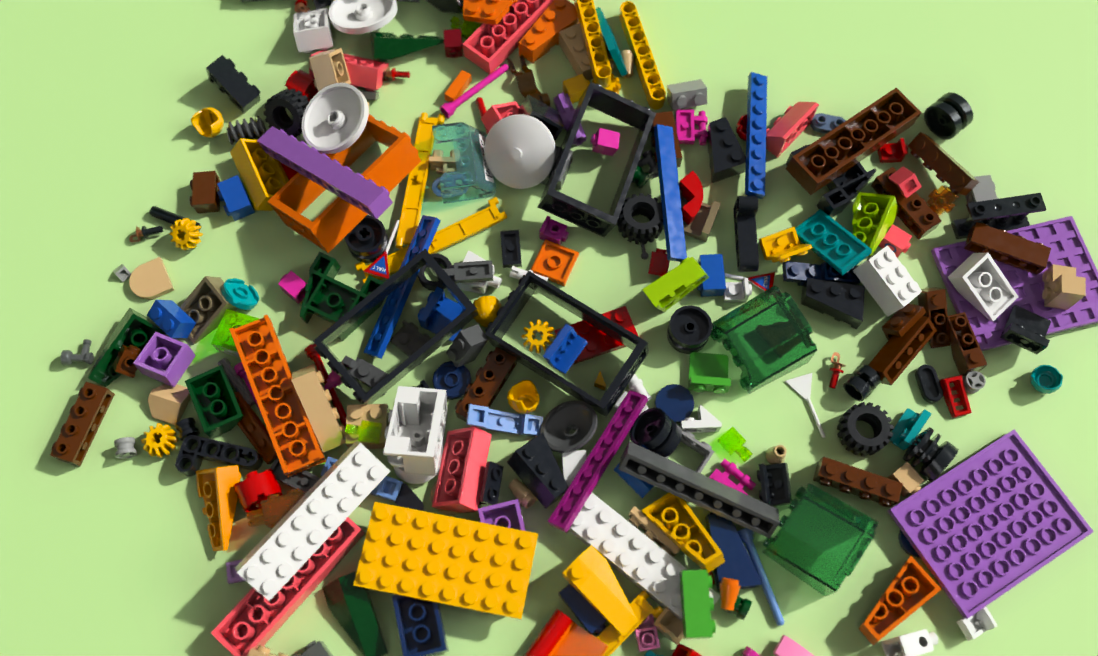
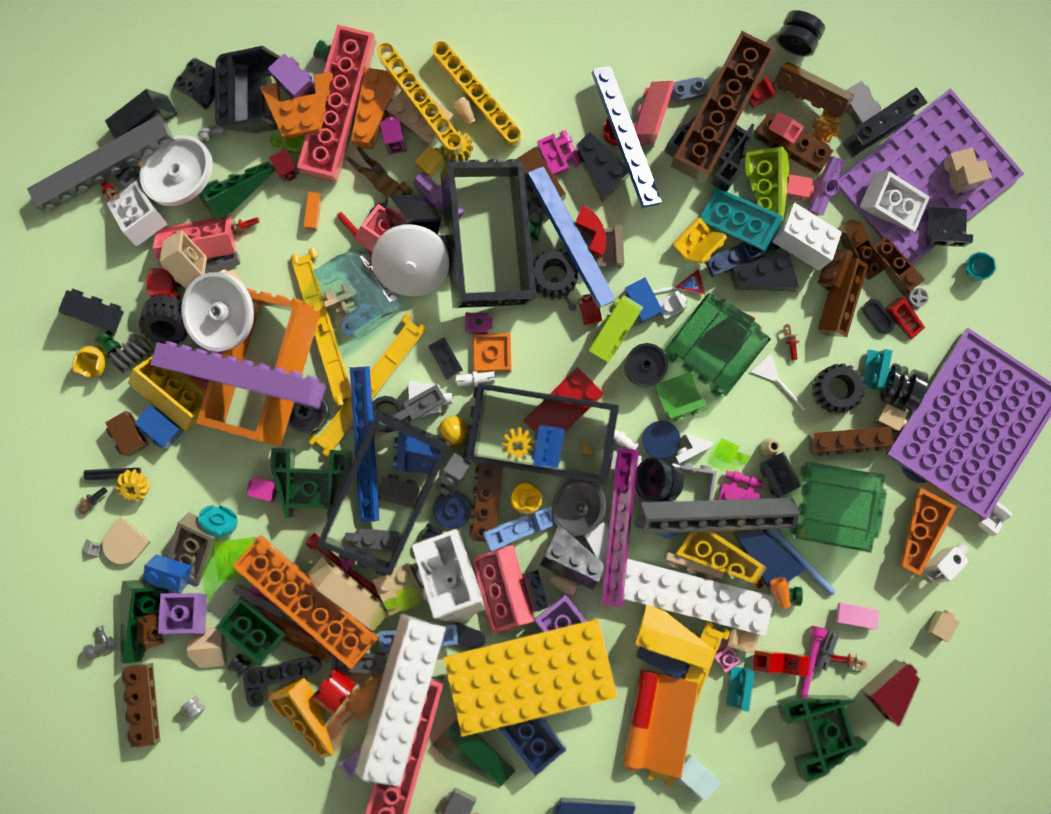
camera: 20 degrees left, 15 degrees up
(152, 441) = (226, 687): yellow gear -> none
(231, 113) = (107, 343): none -> dark green wheel
(380, 265) = (332, 432): piece -> none
(449, 108) = (316, 238): dark pink piece -> none
(555, 55) = (393, 136): none -> magenta brick
(605, 142) = (485, 210): dark pink brick -> none
(611, 42) = (443, 100): teal tile -> none
(687, 94) = (540, 120): light grey brick -> none
(696, 604) = (759, 617): bright green brick -> none
(746, 234) = (657, 244): black beam -> none
(862, 382) = (818, 351): black wheel -> none
(929, 241) = (826, 185): none -> medium lavender piece
(1008, 248) = (904, 153): reddish brown brick -> none

